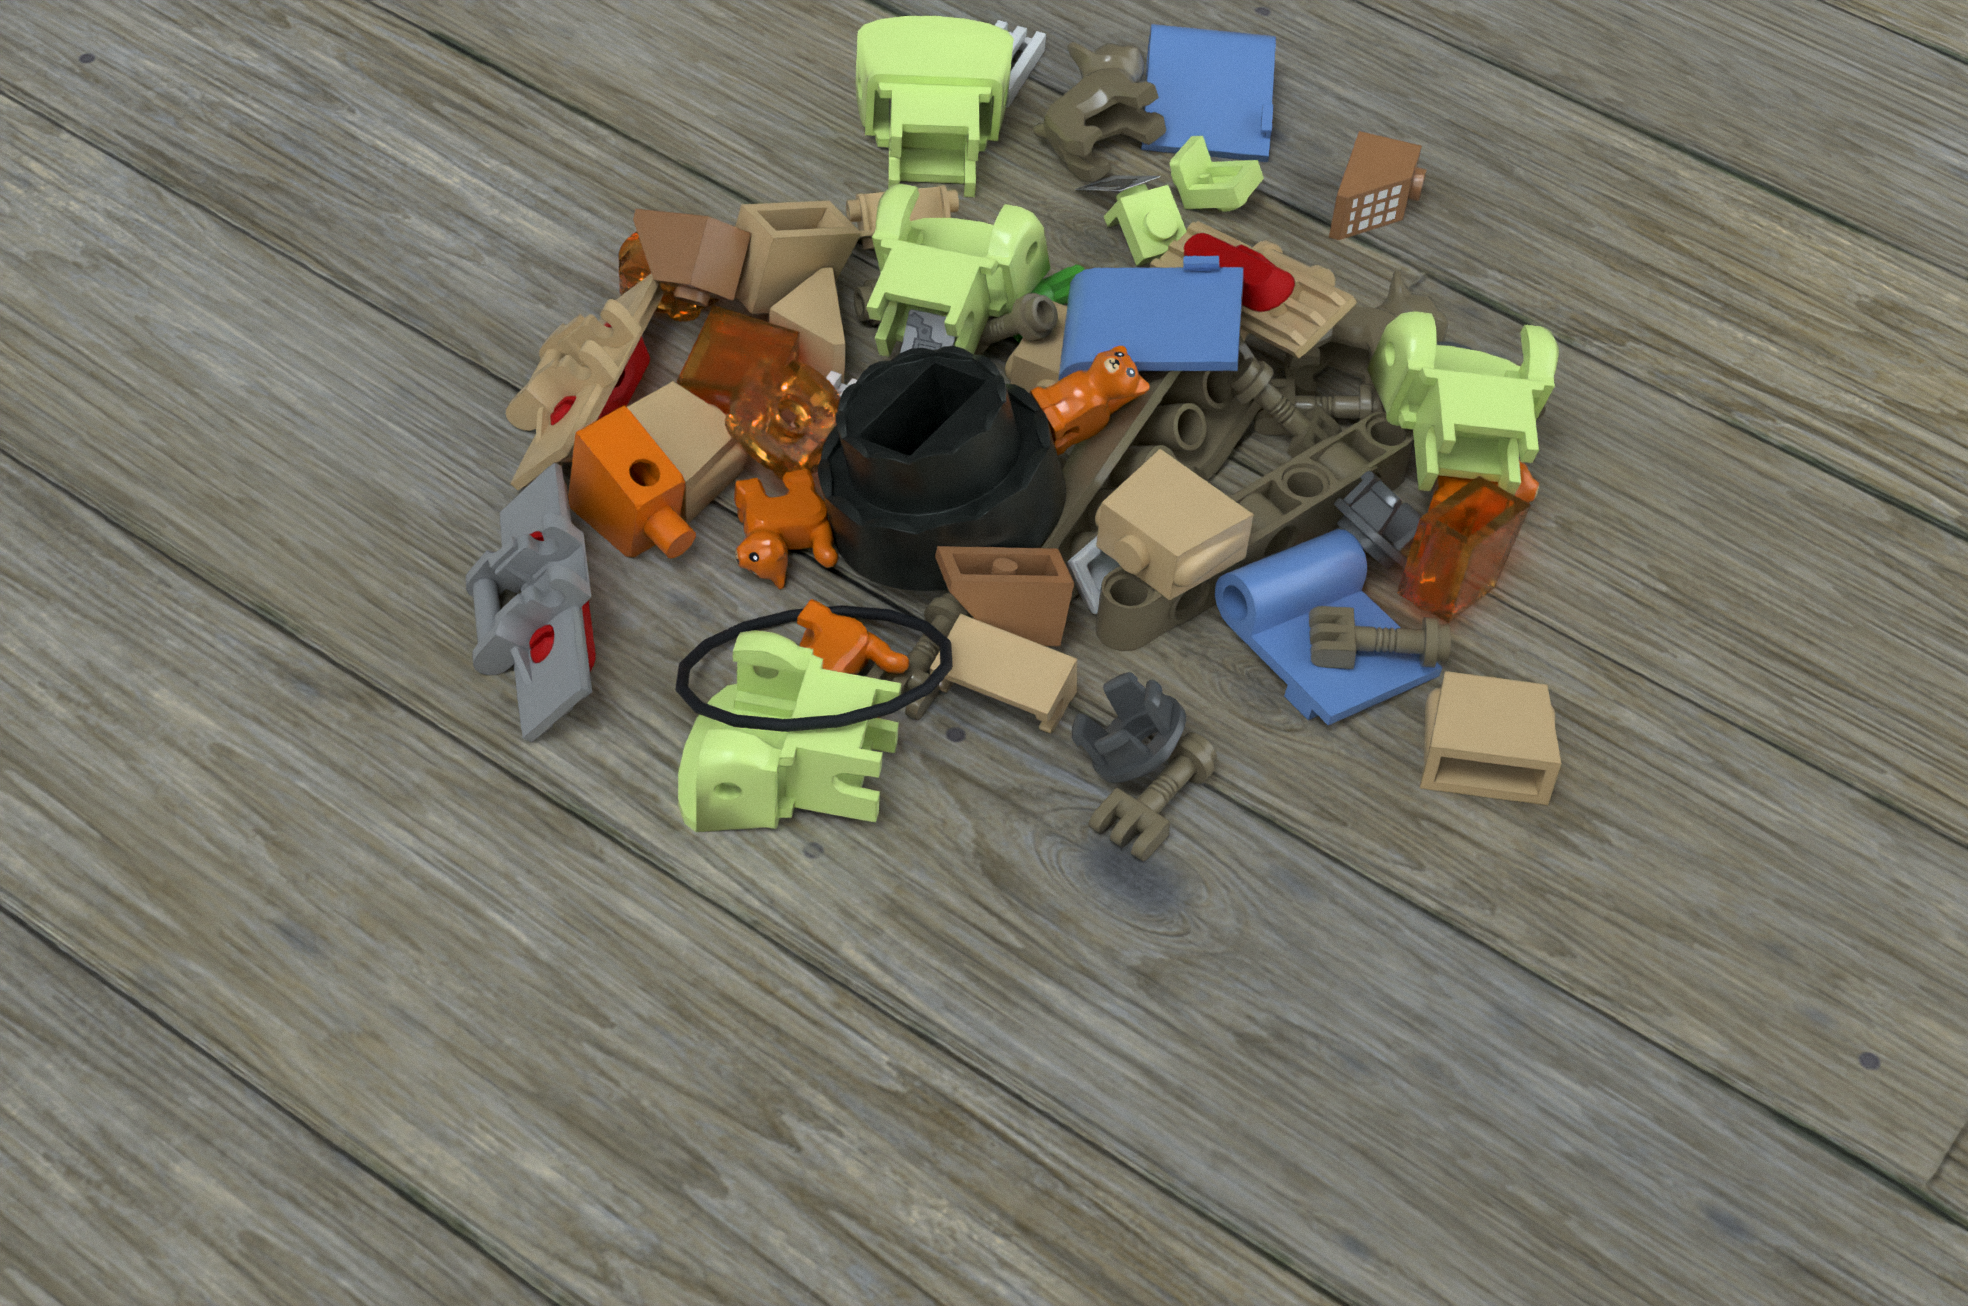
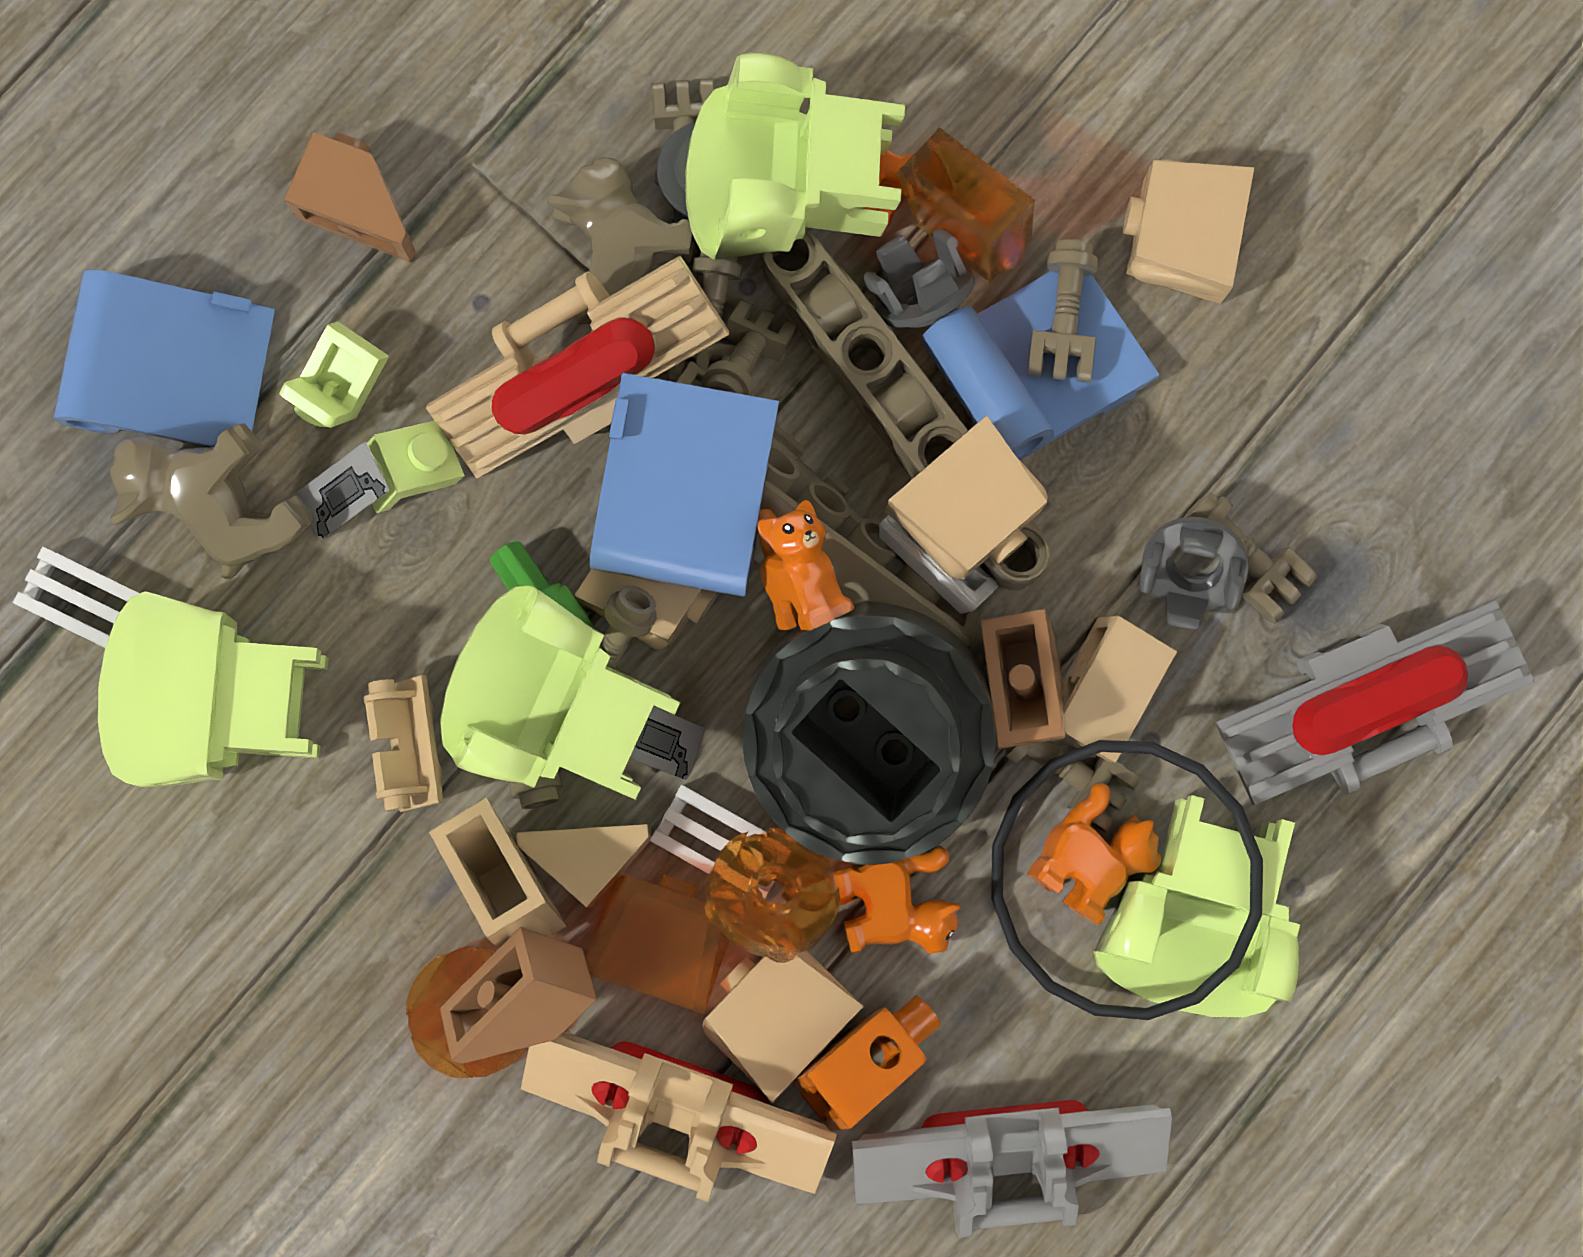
camera: 85 degrees left, 35 degrees up
(1044, 883) = (1368, 691): none -> light grey piece

